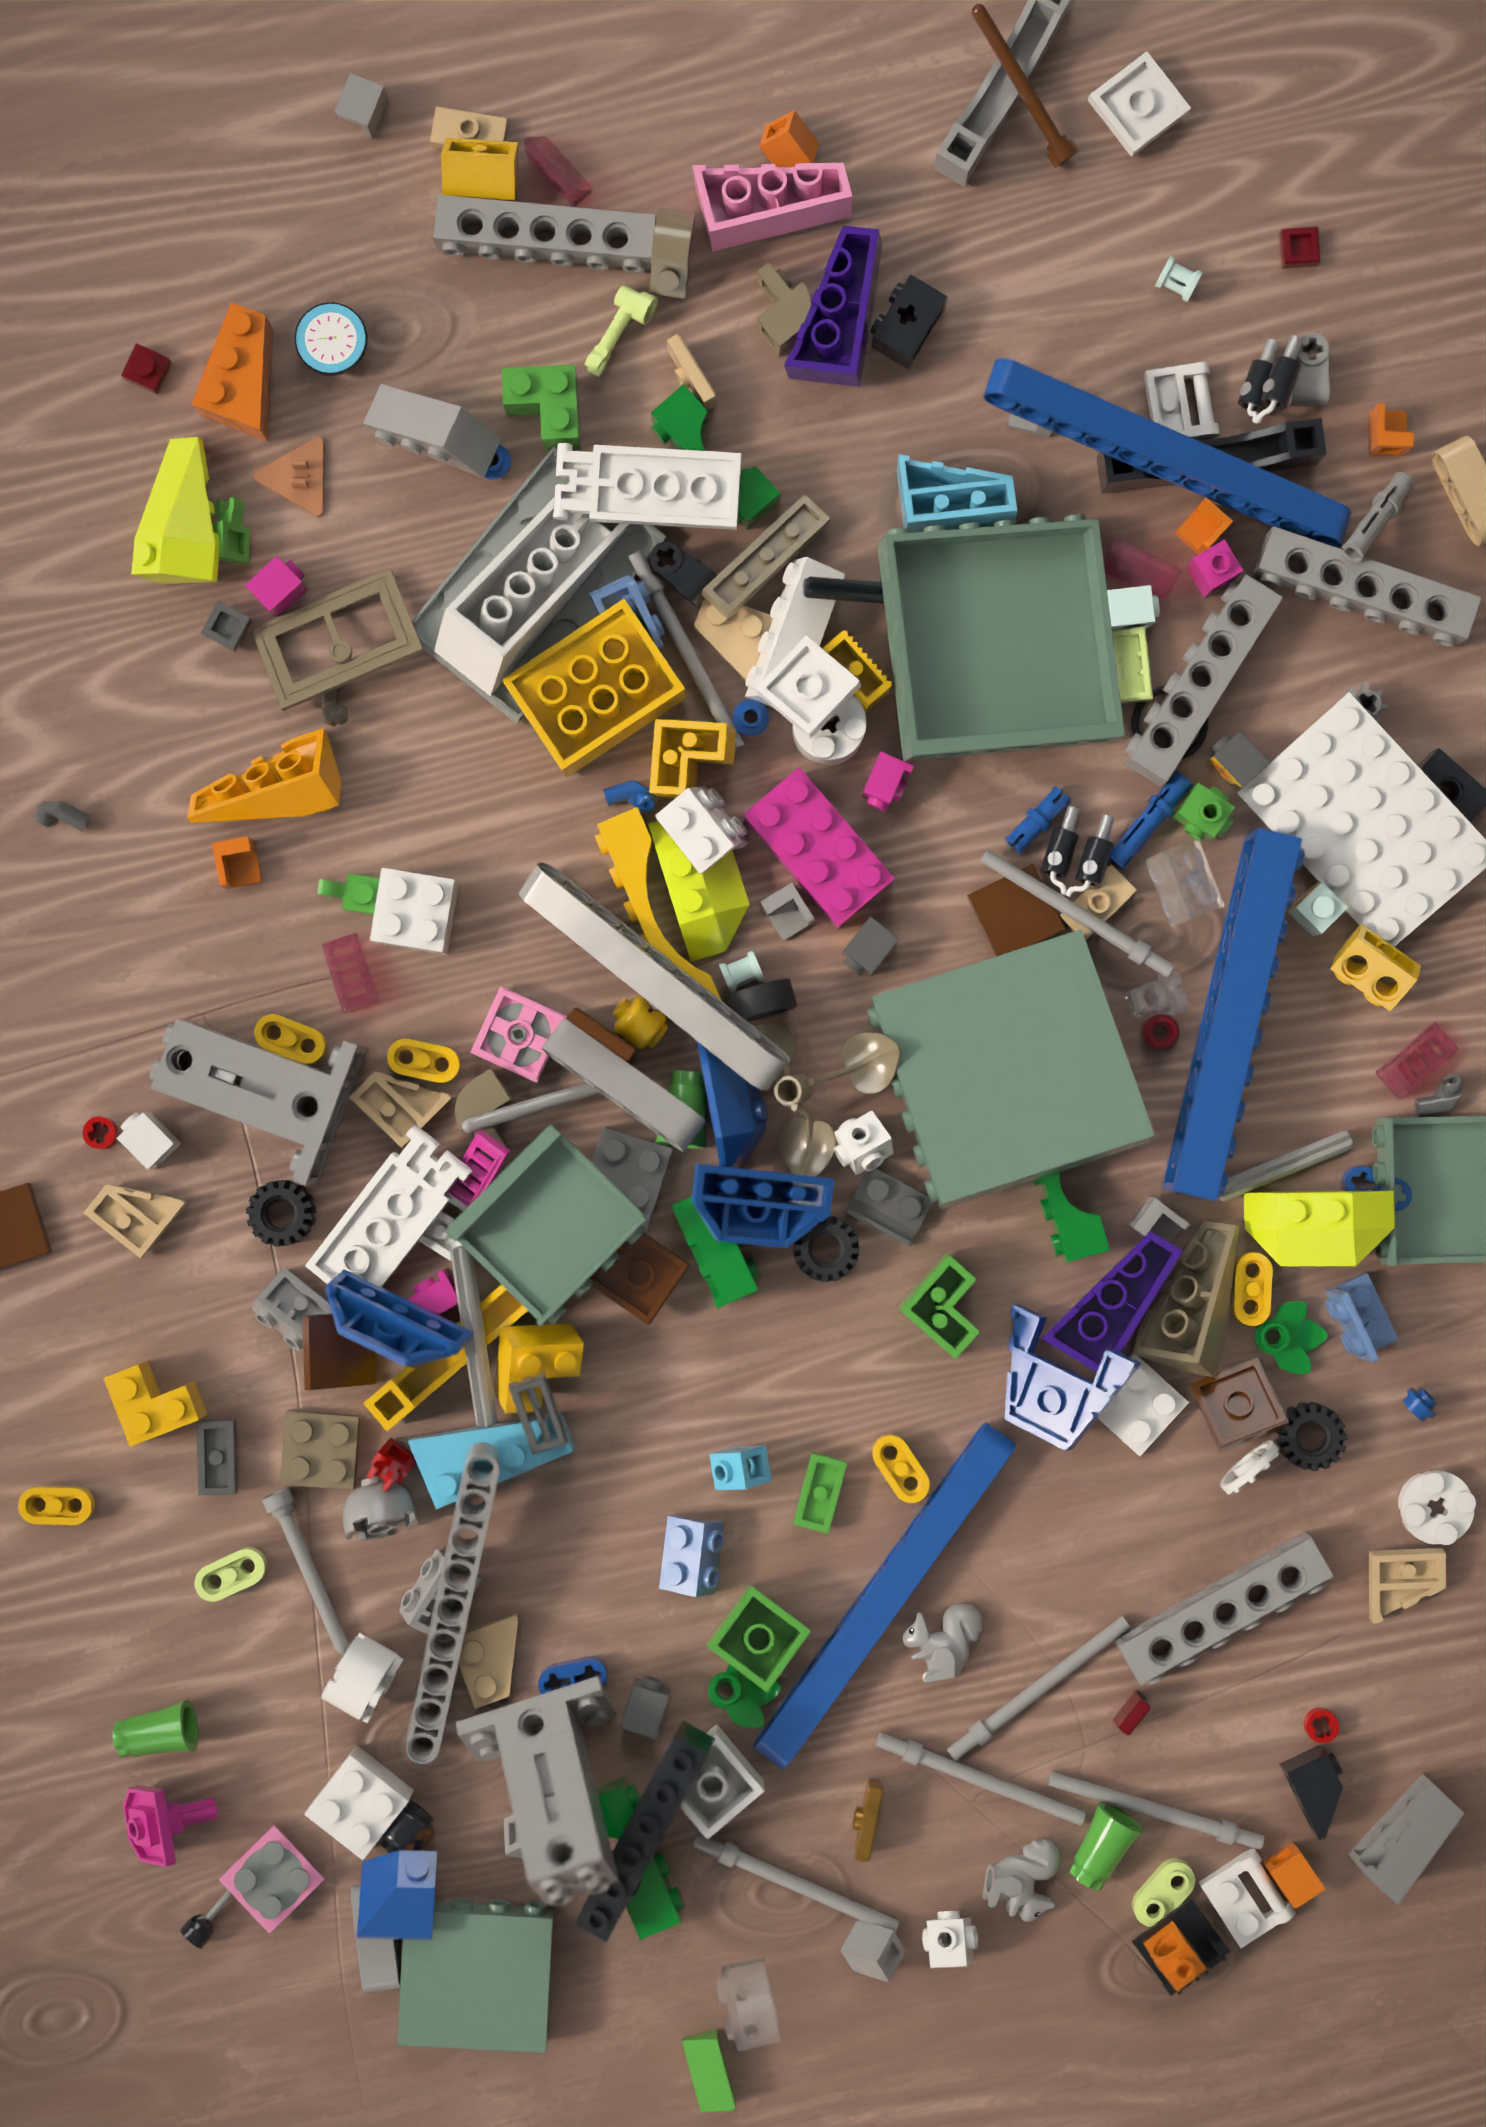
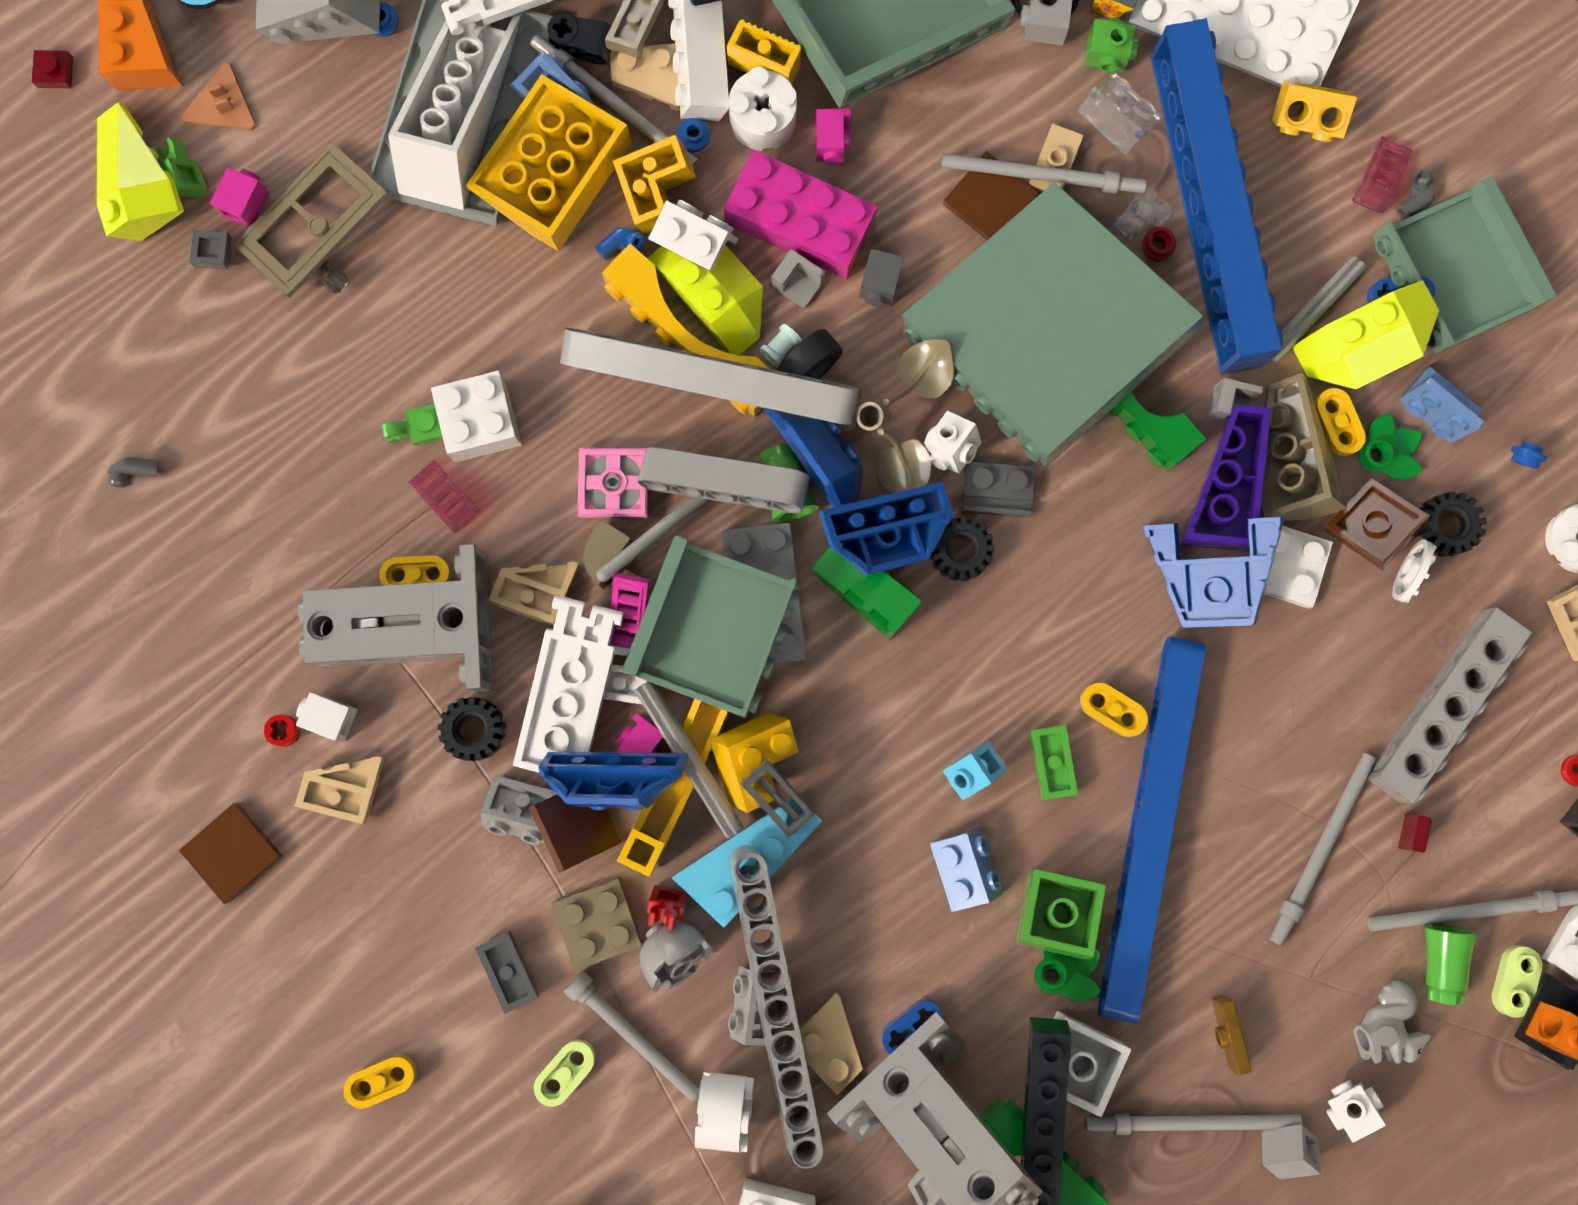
camera: 30 degrees left, 5 degrees down
(145, 1410) = (427, 958): yellow brick -> none
(237, 862) = (303, 443): orange panel -> none
(289, 784) = (323, 356): light orange wedge -> none
(424, 1060) = (540, 540): yellow plate -> none
(602, 1034) = (684, 442): reddish brown tile -> none
(639, 1022) = (713, 425): yellow head -> none
(641, 1277) = (813, 642): reddish brown tile -> none
(646, 1706) = (988, 1022): dark grey brick -> none
(808, 687) = (731, 75): white plate -> none
(913, 1753) = (1243, 956): light grey bar -> none
(932, 1305) = (1078, 556): bright green brick -> none
(945, 1650) = (1229, 851): light grey animal -> none
(1037, 820) = (973, 114): blue pin -> none
(1094, 858) = (1036, 123): black piece -> none
(1159, 809) = (1070, 61): blue pin -> none
(1317, 909) = (1243, 82): light aqua brick -> none

